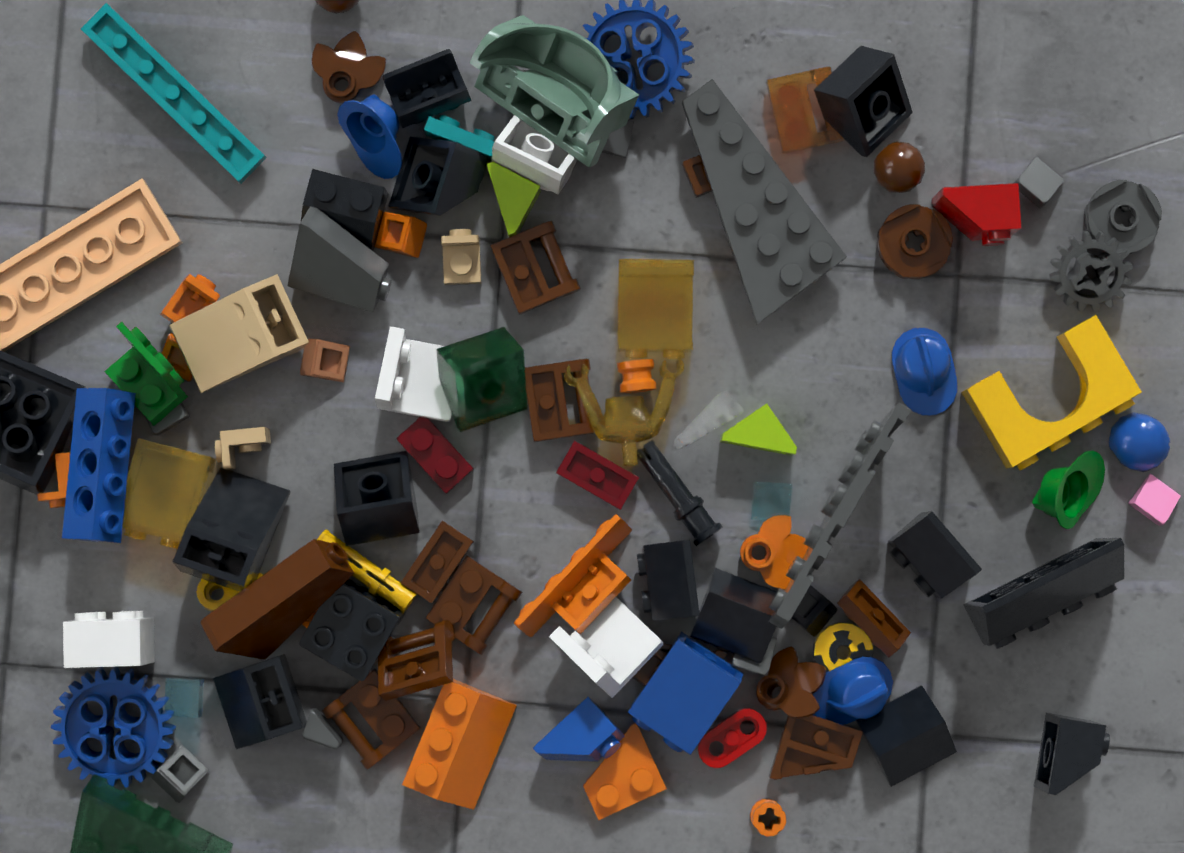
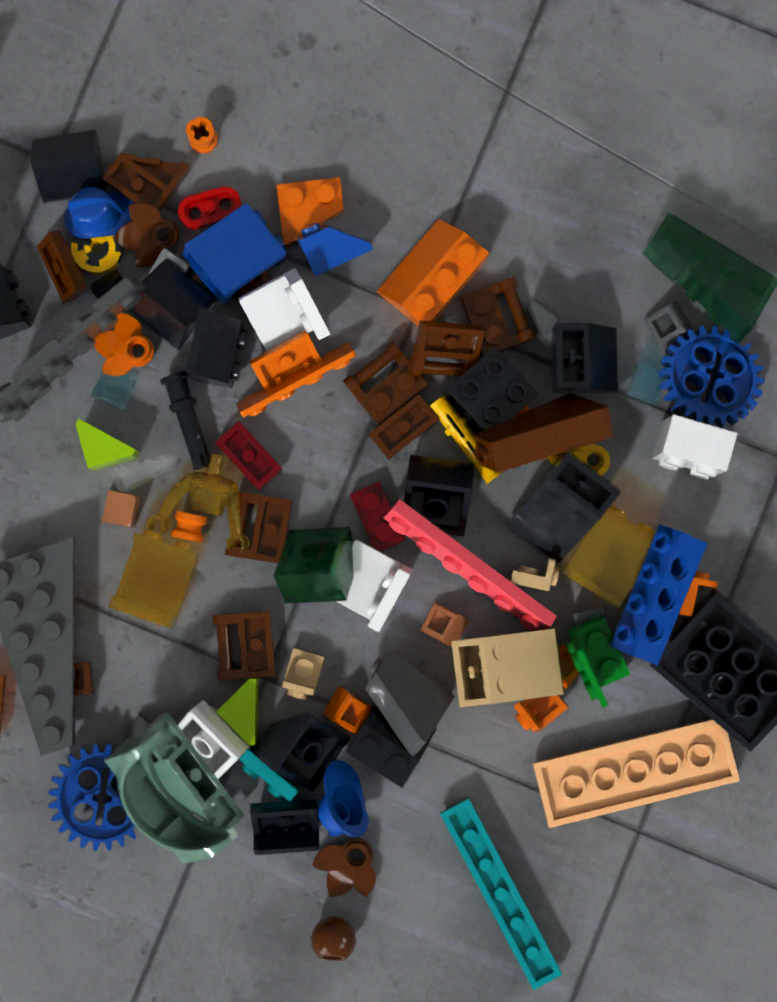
camera: 160 degrees left, 0 degrees up
(326, 433) = (461, 561): none -> coral plate
(719, 372) = (121, 508): none -> nougat slope

